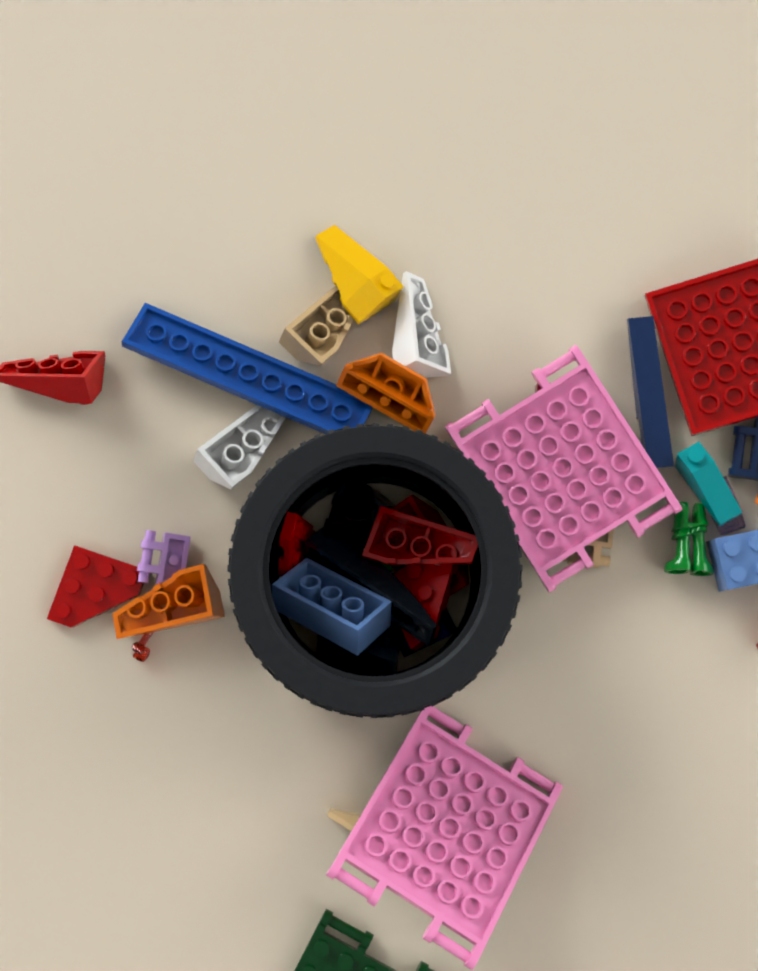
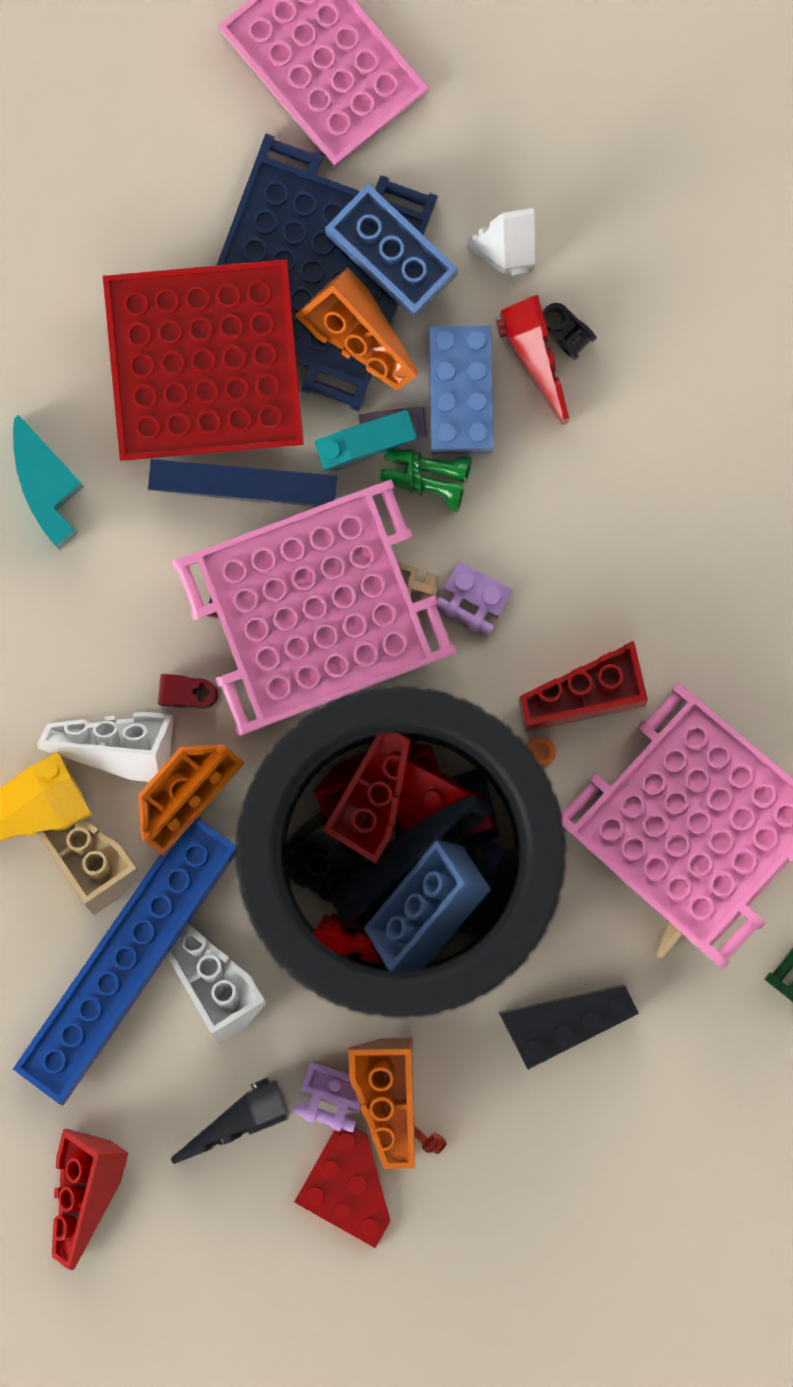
camera: 80 degrees left, 5 degrees up
(139, 497) = (250, 1113): none -> black wedge
(258, 742) = (562, 1023): none -> black wedge
(471, 377) = (181, 692): none -> dark red piece
(483, 681) = (543, 750): none -> orange tile
(539, 708) = (590, 691): none -> red wedge
(603, 599) = (477, 590): none -> lavender plate
(614, 238) = (44, 482): none -> teal slope

